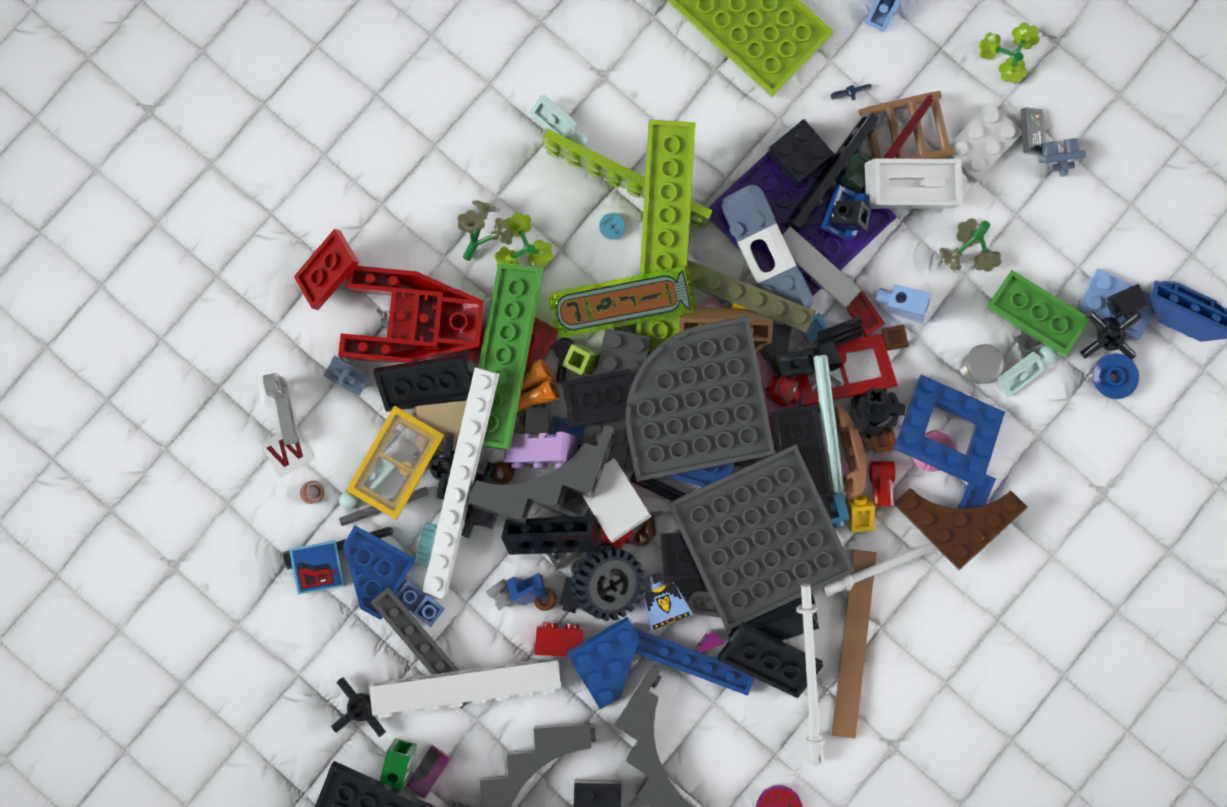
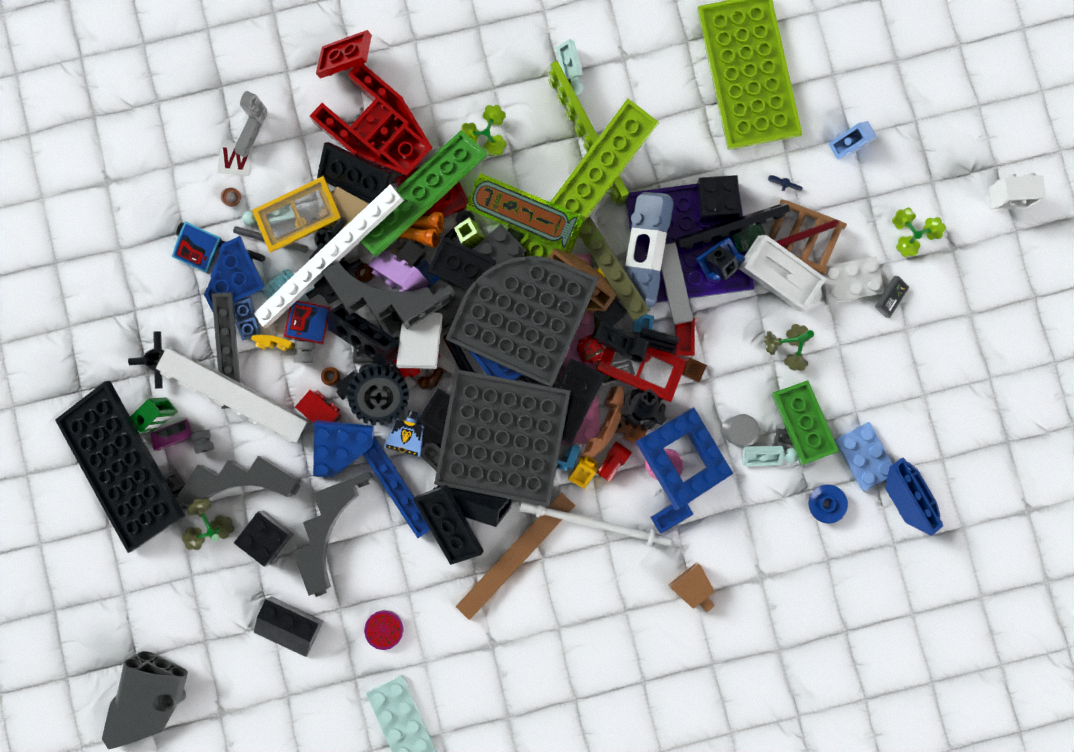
camera: 40 degrees right, 0 degrees up
(347, 375) = (307, 135): sand blue hips -> none
(456, 610) = (269, 341): none -> yellow slope
(465, 755) = (202, 441): none -> dark grey wheel
(474, 222) = (462, 88): olive plant -> none
(482, 562) = (307, 322): none -> slope
(526, 590) = (320, 361): blue panel -> none
(612, 226) = (556, 160): medium azure piece -> none
(709, 642) = (418, 482): magenta slope -> none
(815, 739) = (441, 601): white bar -> none
(829, 423) = (604, 394): light aqua axle -> none
(915, 302) = (721, 357): light blue torso -> none
(960, 532) = (641, 532): reddish brown plate -> none
(1047, 549) = (694, 587): none -> medium nougat torso
(1072, 151) = (893, 321): sand blue hips -> none
(1110, 334) = (848, 476): black bar -> none
(1126, 301) = (872, 458): black brick -> none

